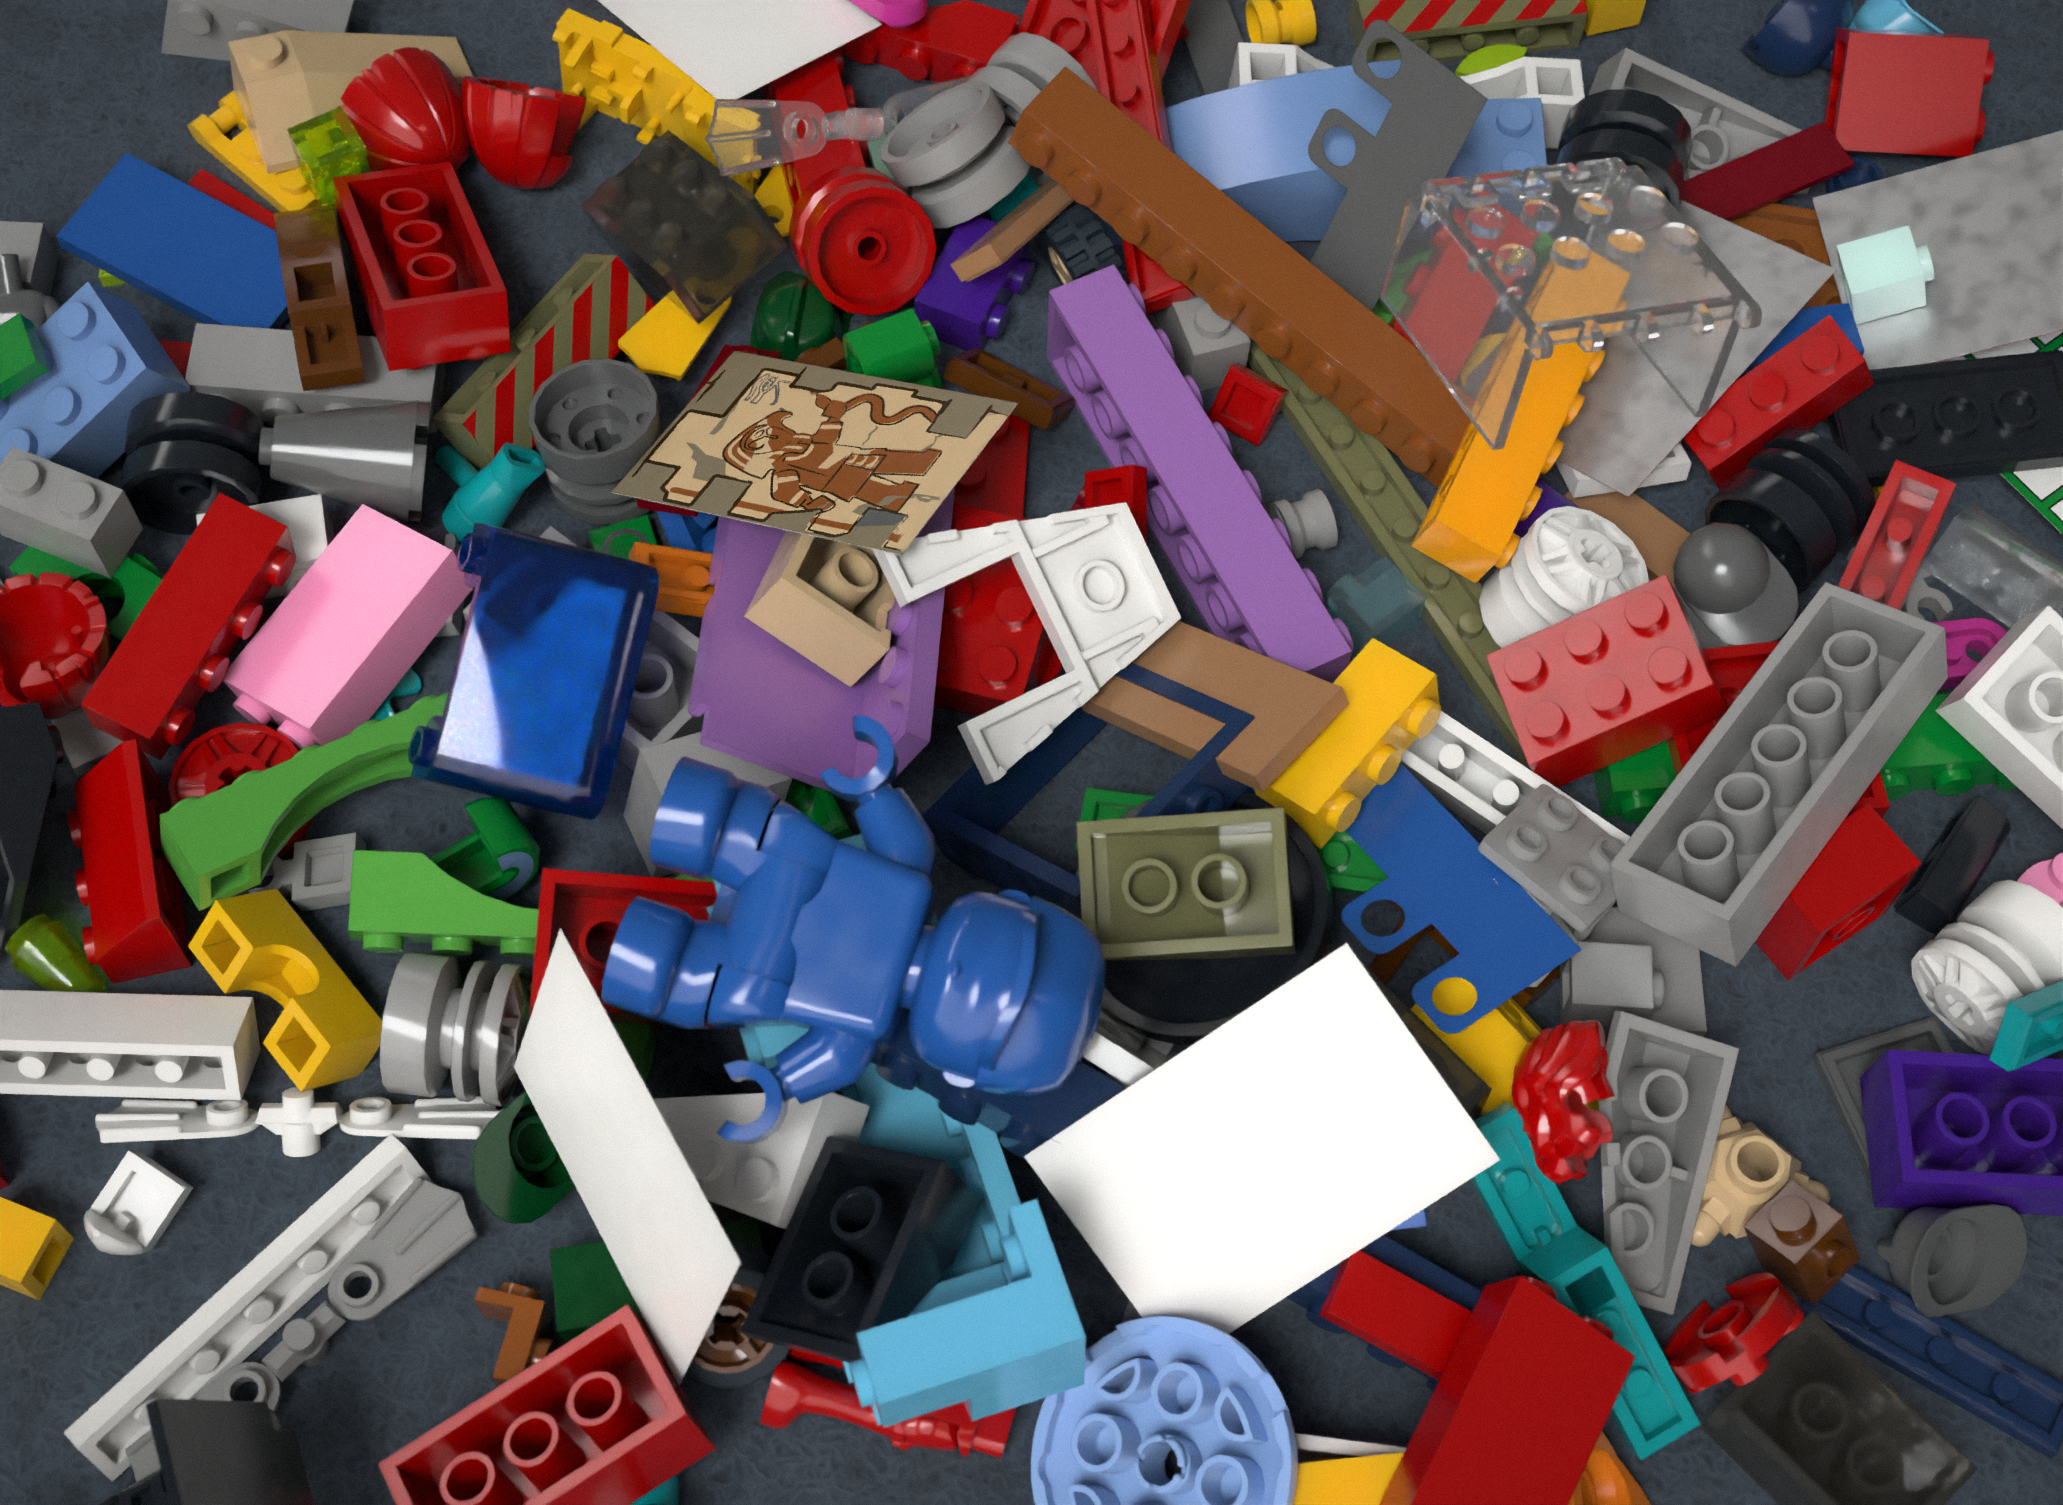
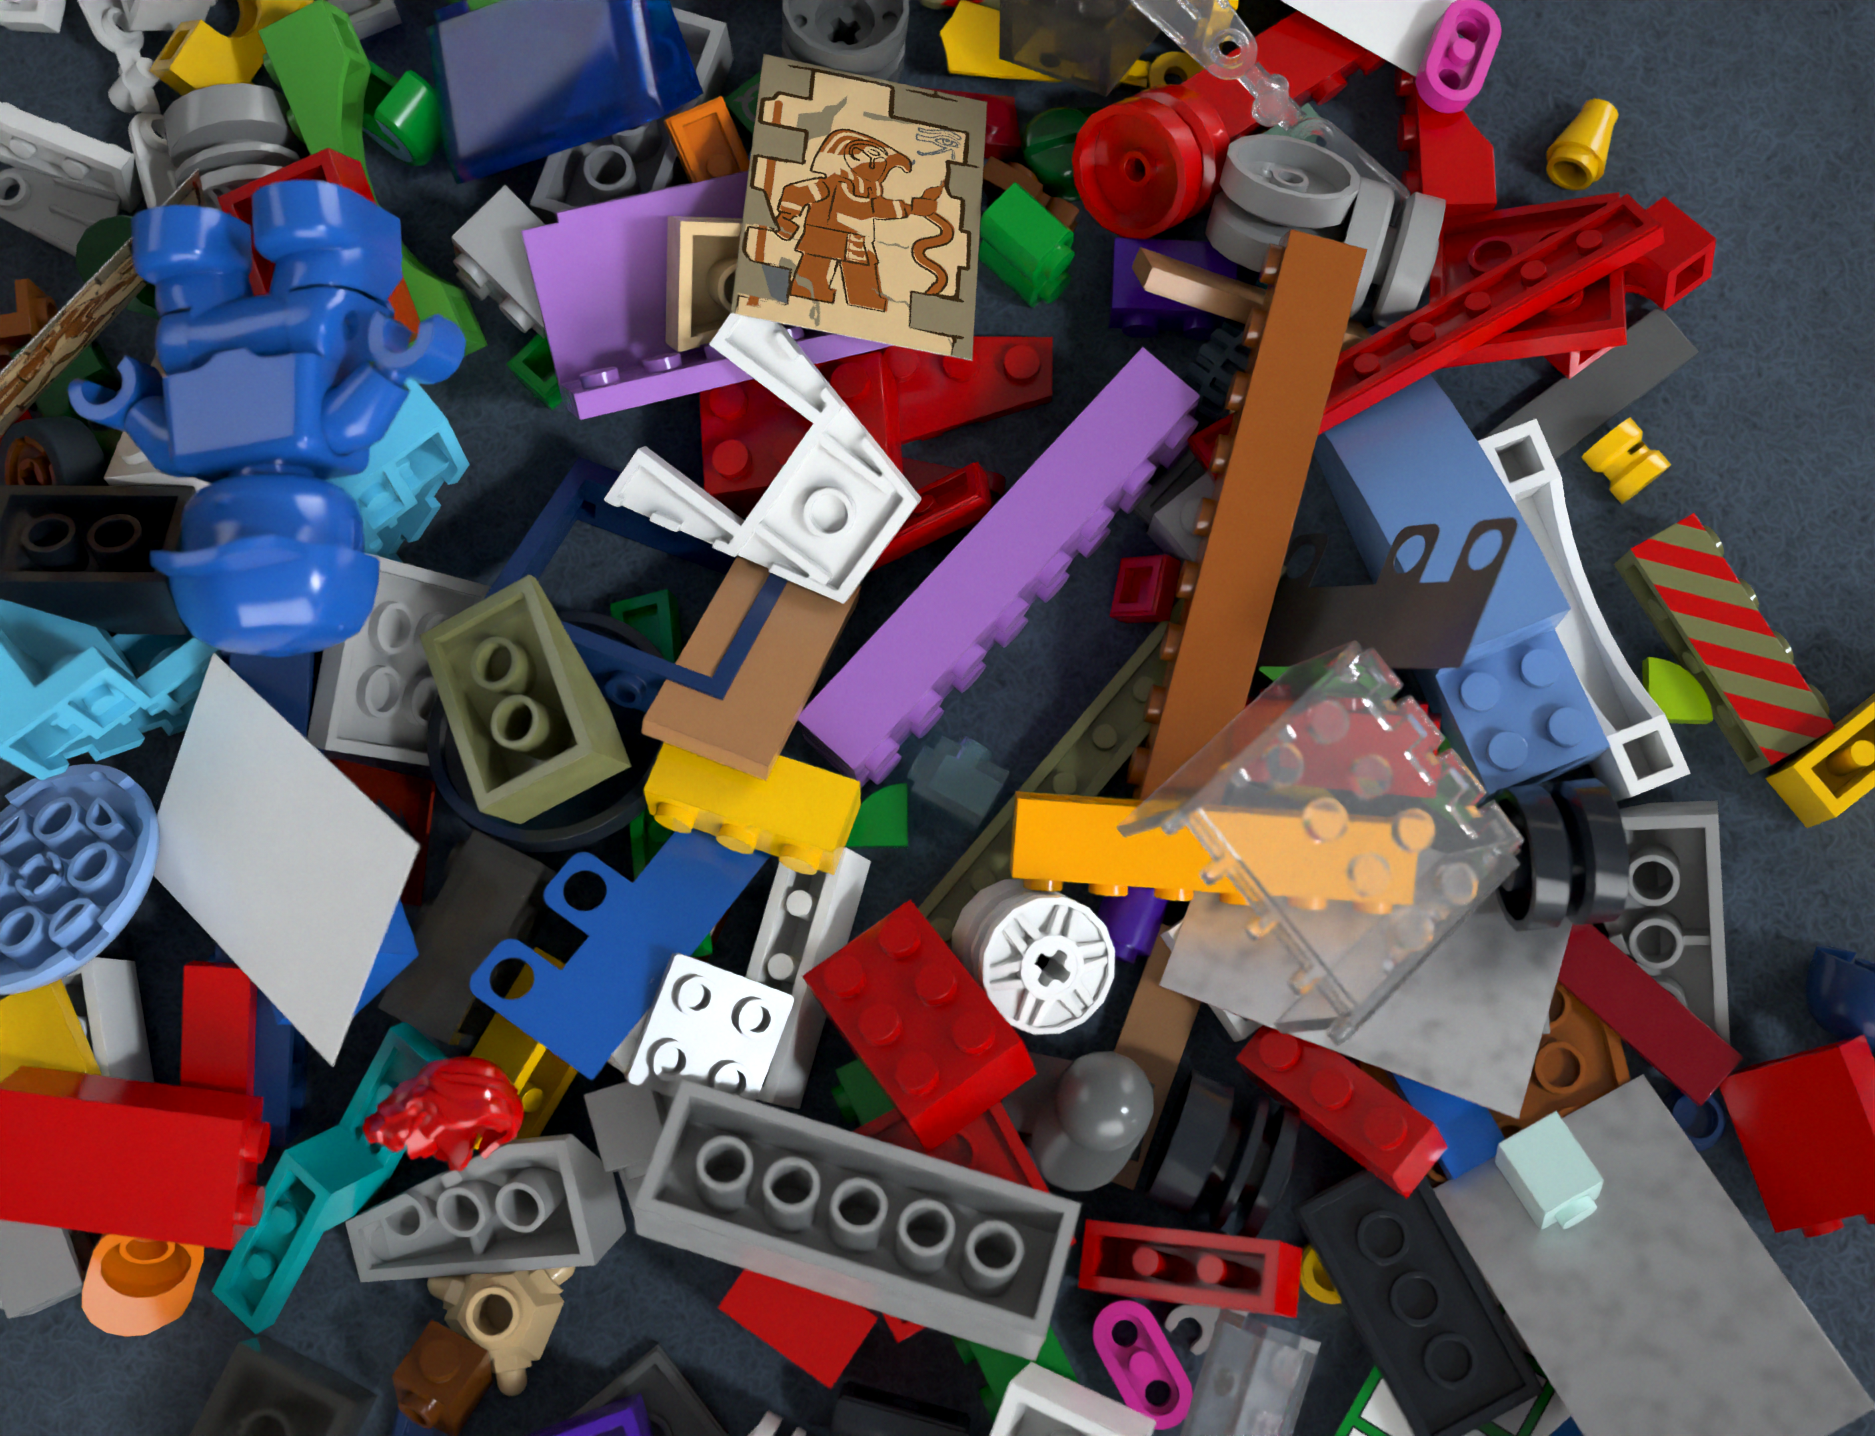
camera: 75 degrees right, 15 degrees up
(994, 378) = (1062, 361): reddish brown tile -> none
(1307, 521) = (1030, 687): light grey wheel -> none
(1735, 1336) = (328, 1338): red plate -> none

